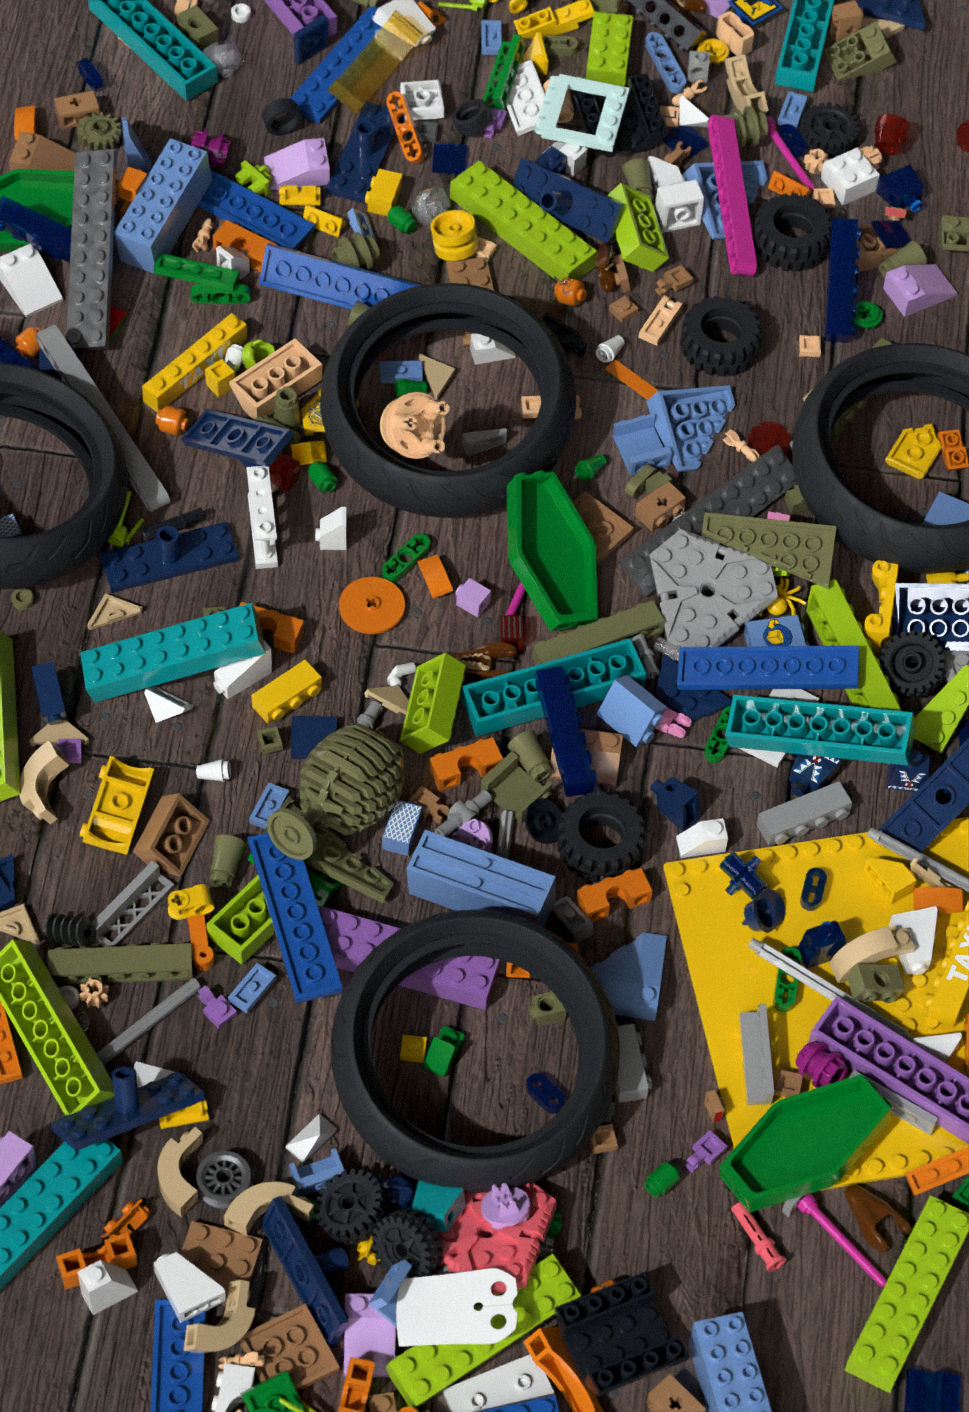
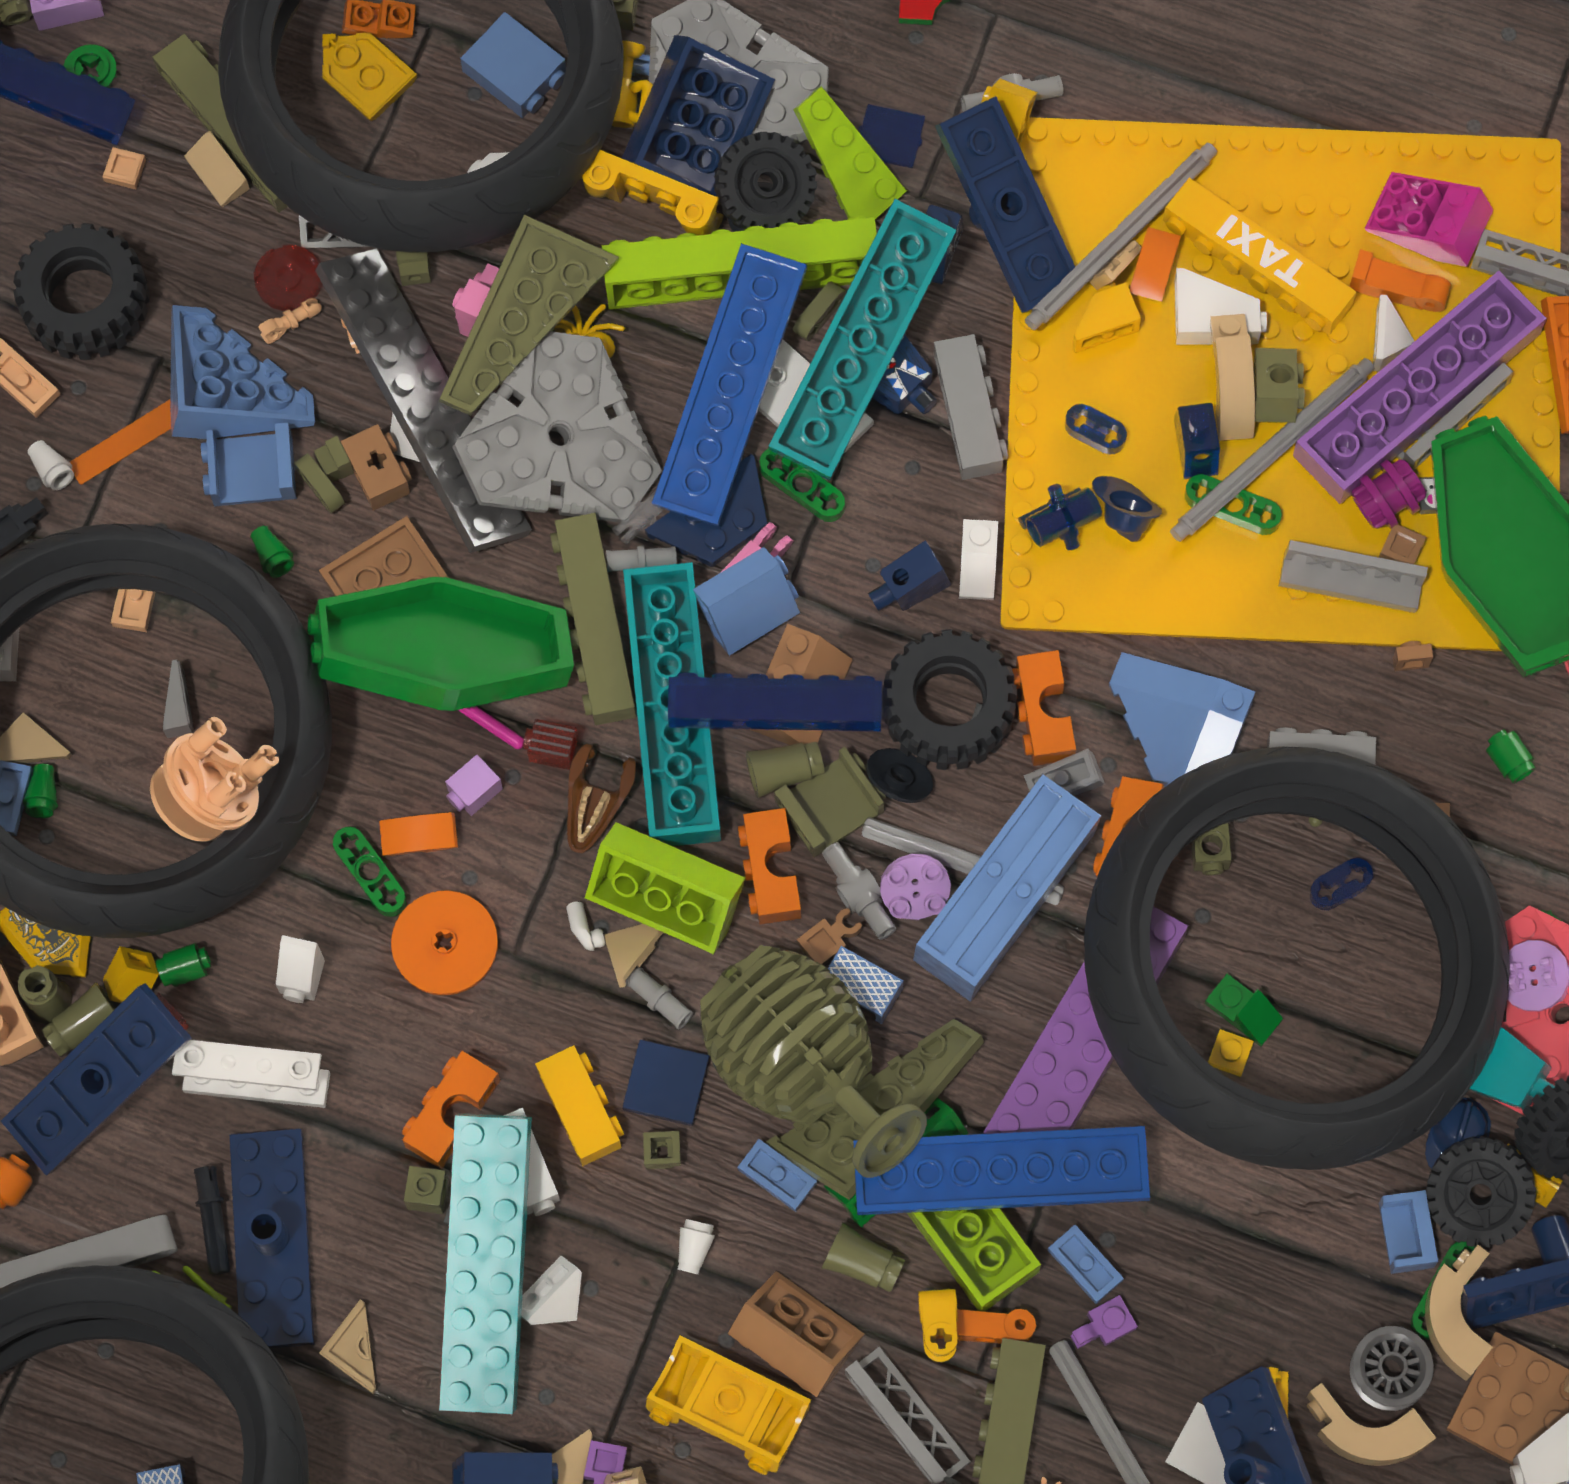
camera: 70 degrees left, 15 degrees up
(311, 1138) = (1345, 1229): white slope -> none
(706, 1149) = (1477, 682): medium lavender plate -> none
(775, 632) = (662, 364): medium blue panel -> none

